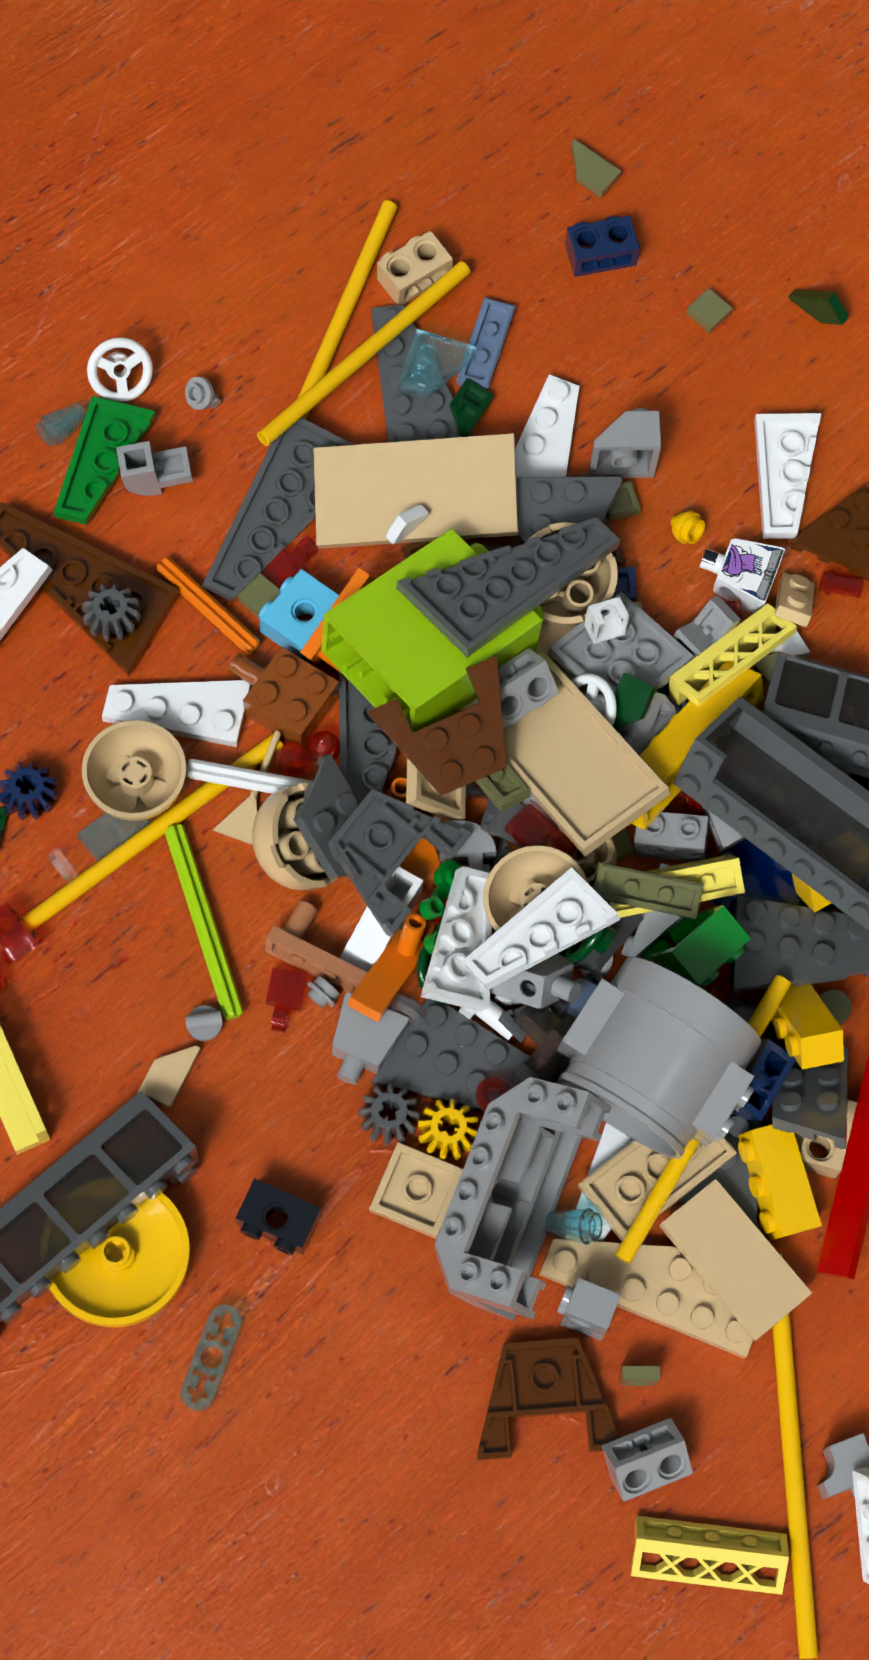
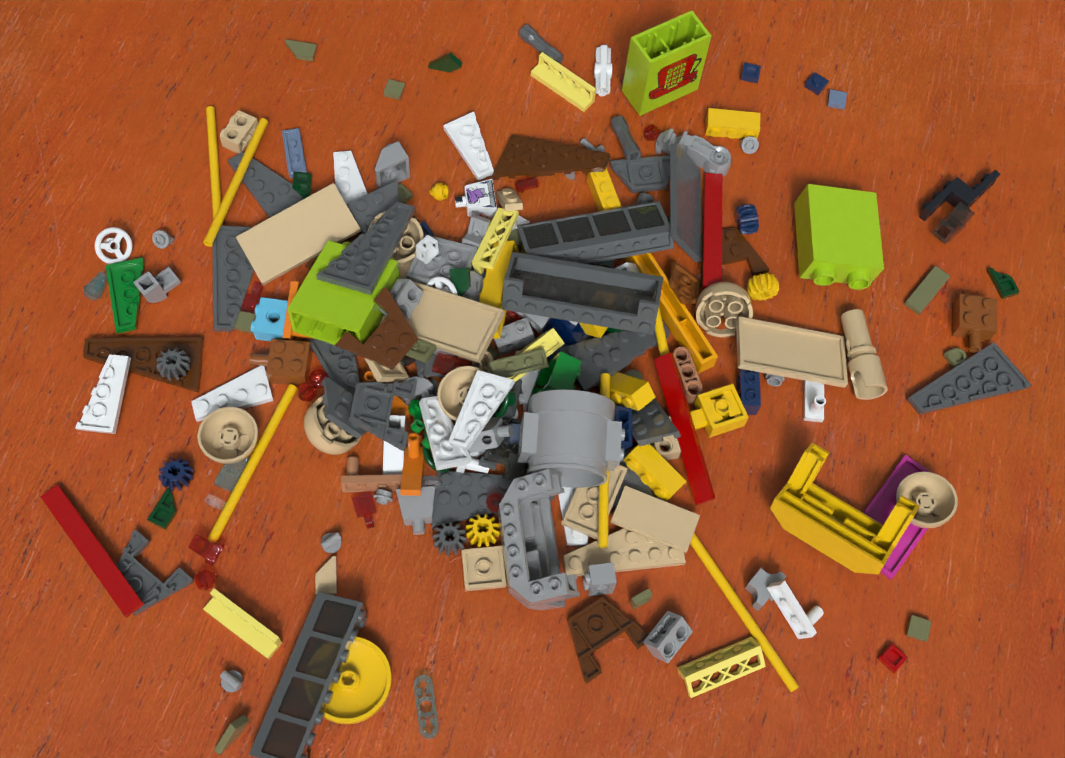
camera: 30 degrees left, 5 degrees down
(204, 922) = (304, 493): lime axle -> none
(208, 606) = (222, 339): orange axle -> none
(239, 776) = (283, 413): white axle -> none
(241, 820) = (296, 434): tan piece -> none
(262, 1202) = (410, 613): black brick -> none
(406, 523) = (302, 250): white tile -> none
(432, 363) = (273, 171): clear light blue wing -> none
(576, 1225) = (572, 542): clear light blue cone -> none
(604, 252) = (326, 82): dark blue brick -> none

